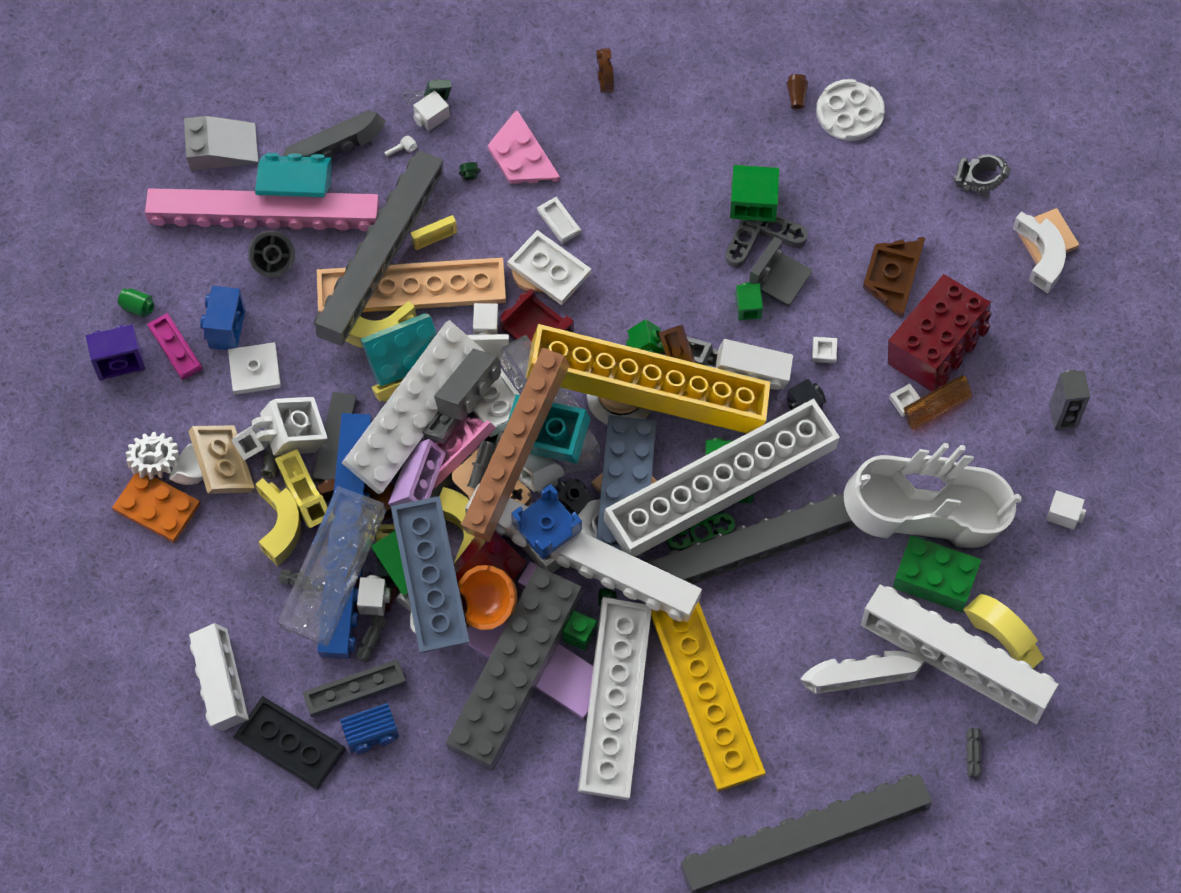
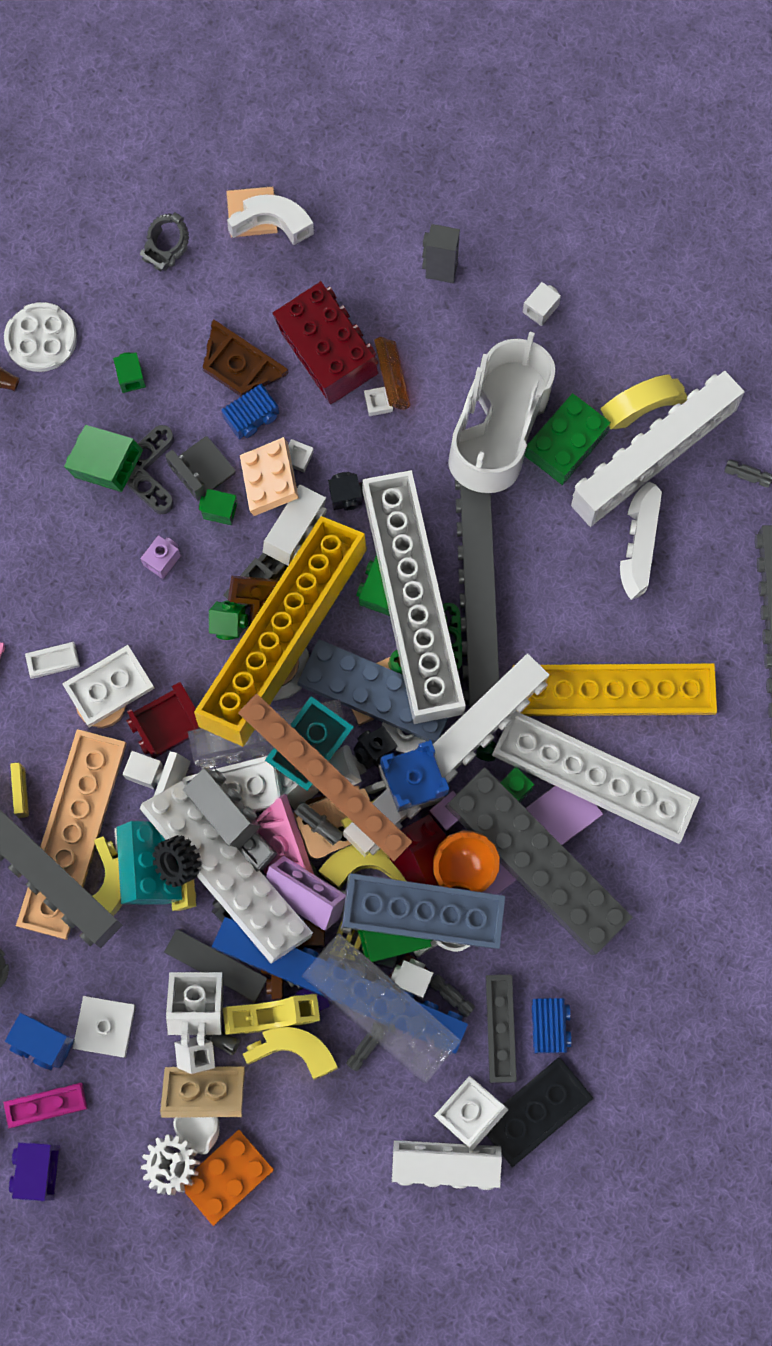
camera: 70 degrees left, 10 degrees up
(270, 683) = (471, 1113): none -> white plate
(406, 361) = (176, 849): none -> black tyre
(684, 270) = (161, 556): none -> lavender brick
(791, 329) = (269, 476): none -> light nougat plate
(845, 188) = (129, 372): none -> green brick
(849, 297) = (250, 412): none -> blue brick

